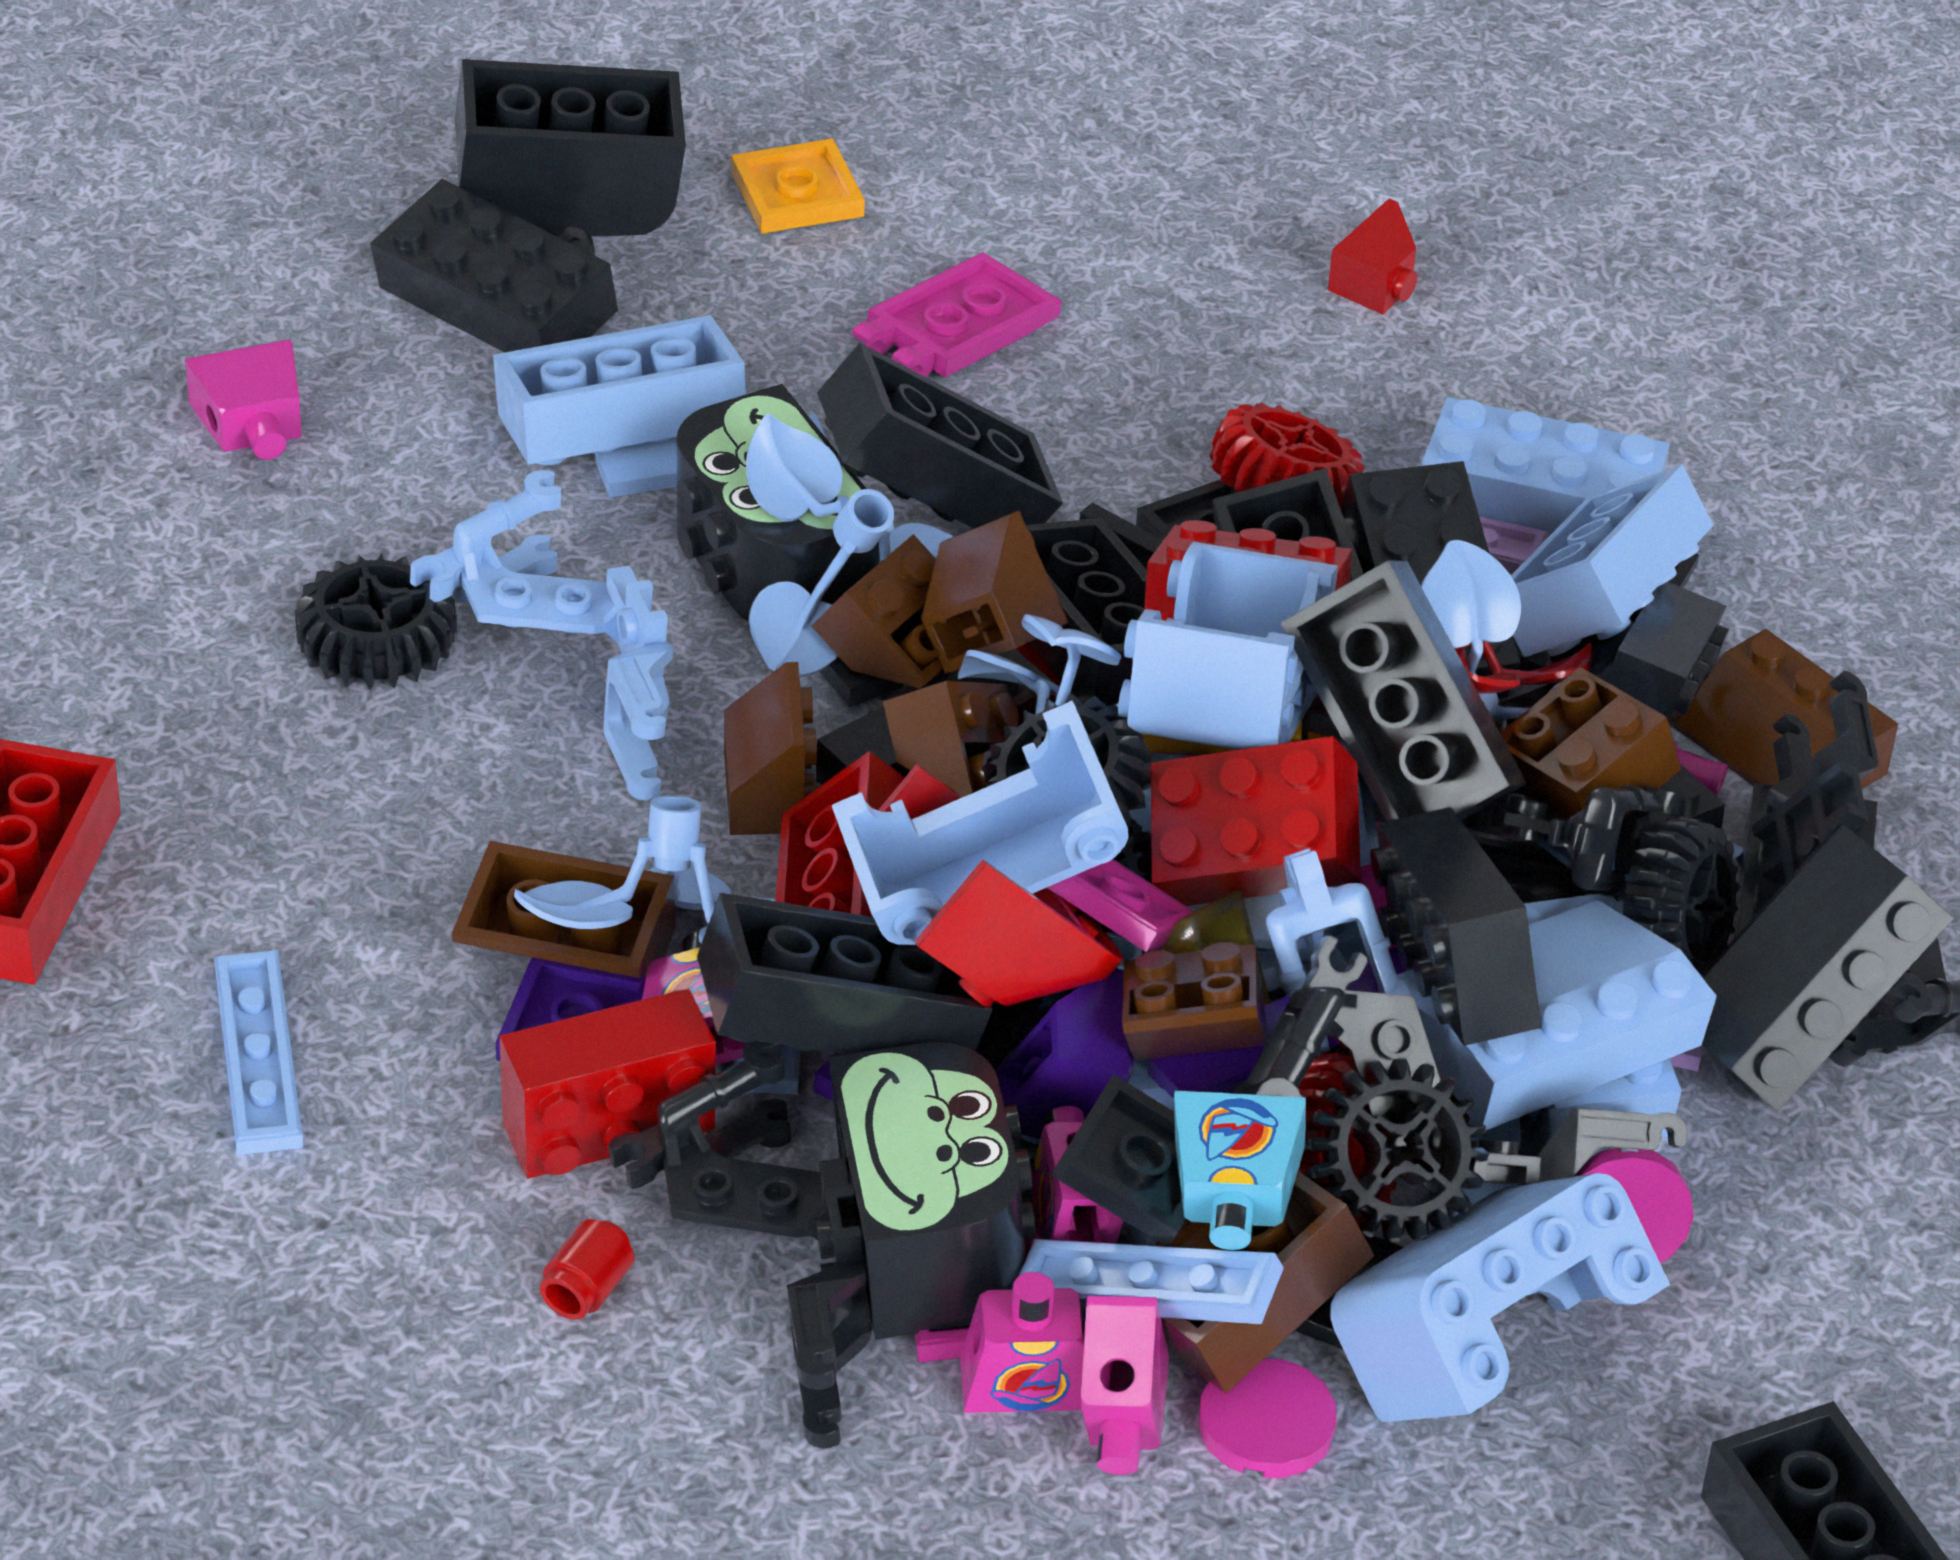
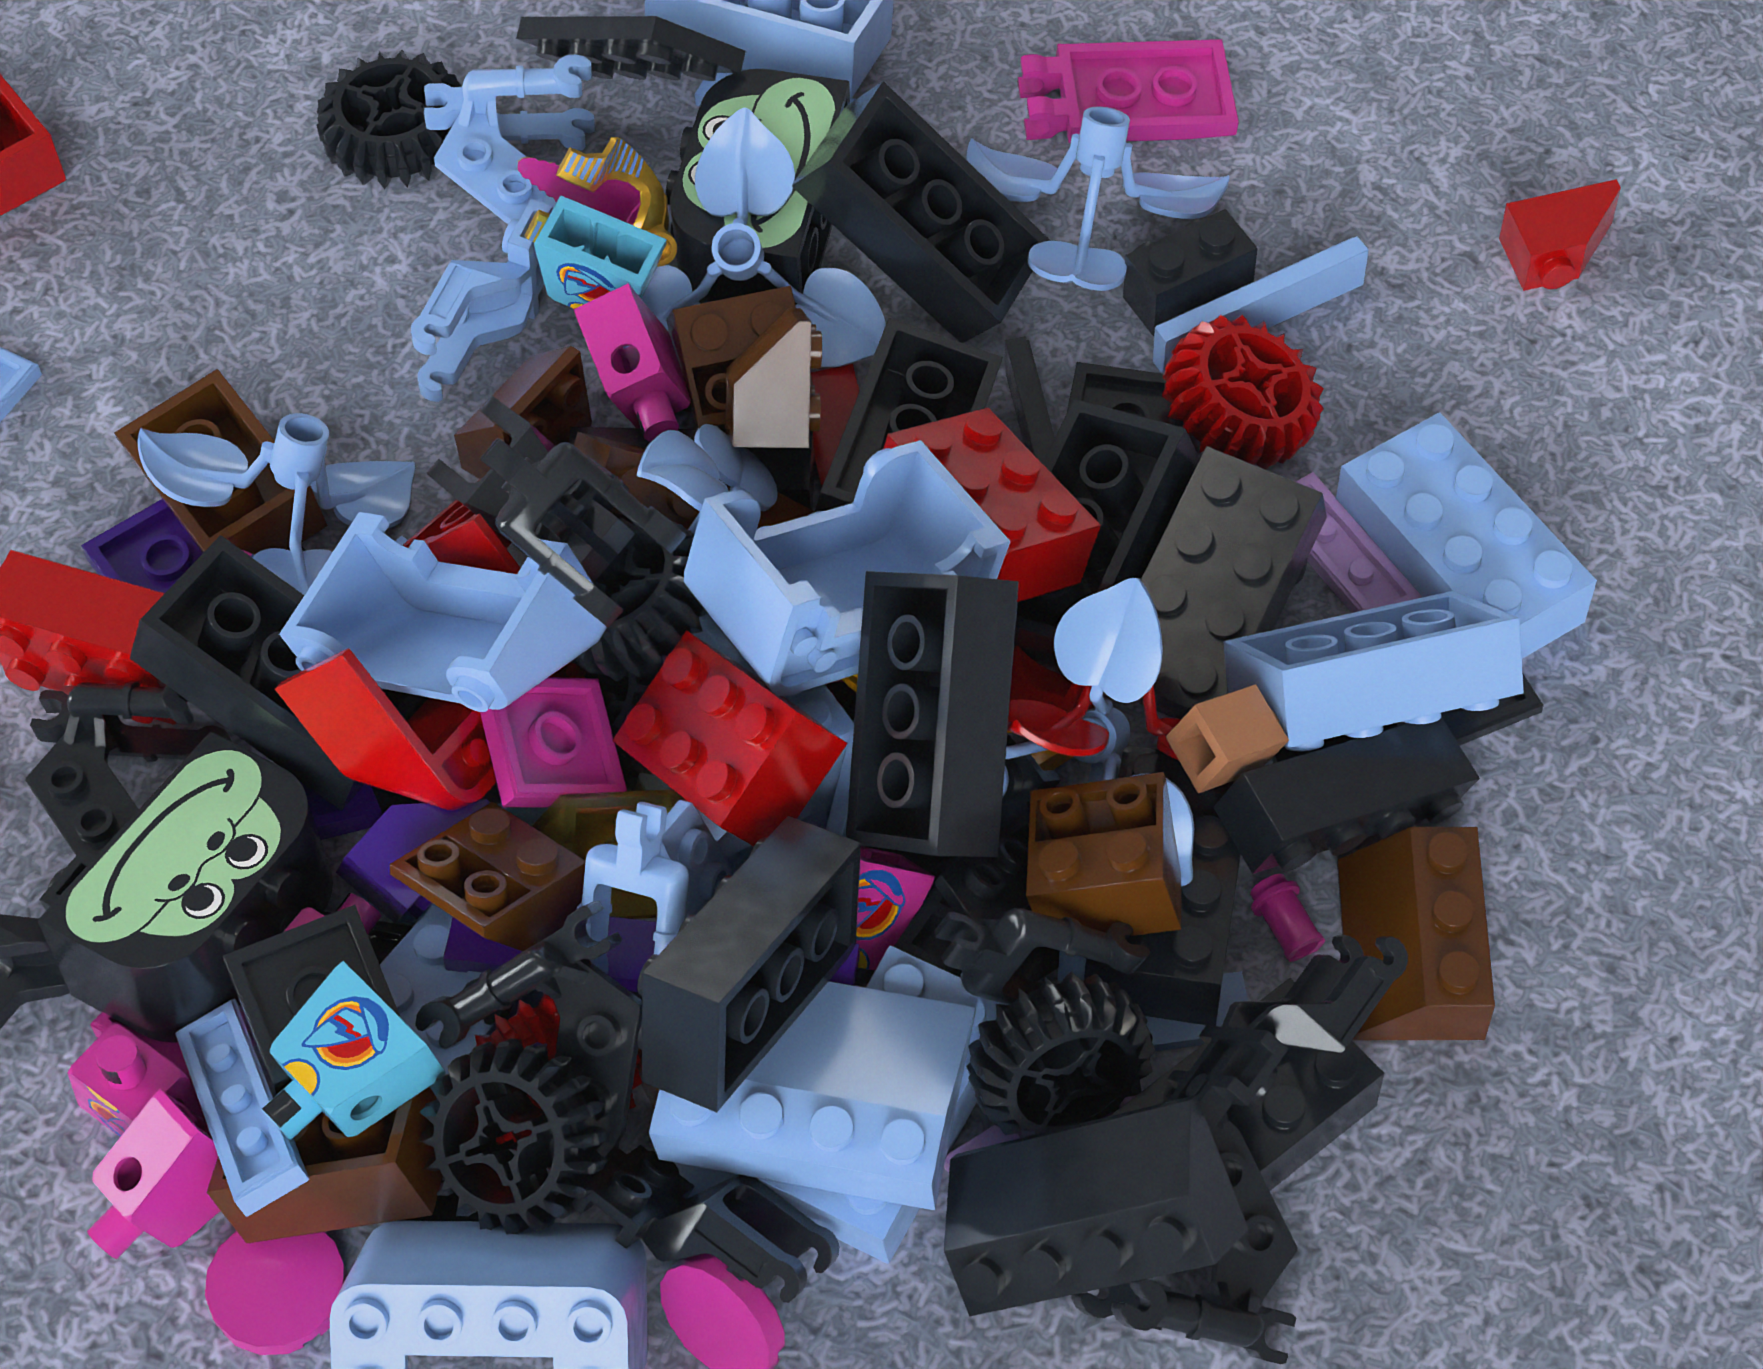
camera: 45 degrees right, 15 degrees up
(570, 443) = (631, 46): none -> black plate
(693, 564) = (609, 182): none -> piece
(754, 591) = (593, 254): none -> medium azure torso
(849, 648) = (645, 376): none -> dark pink torso
(987, 722) = (555, 497): none -> black piece
(1023, 347) = (1100, 150): none -> light blue plant
(1149, 409) = (1188, 268): none -> black brick
(1230, 390) = (1274, 296): none -> light blue tile
(1579, 635) = (1226, 738): none -> nougat brick

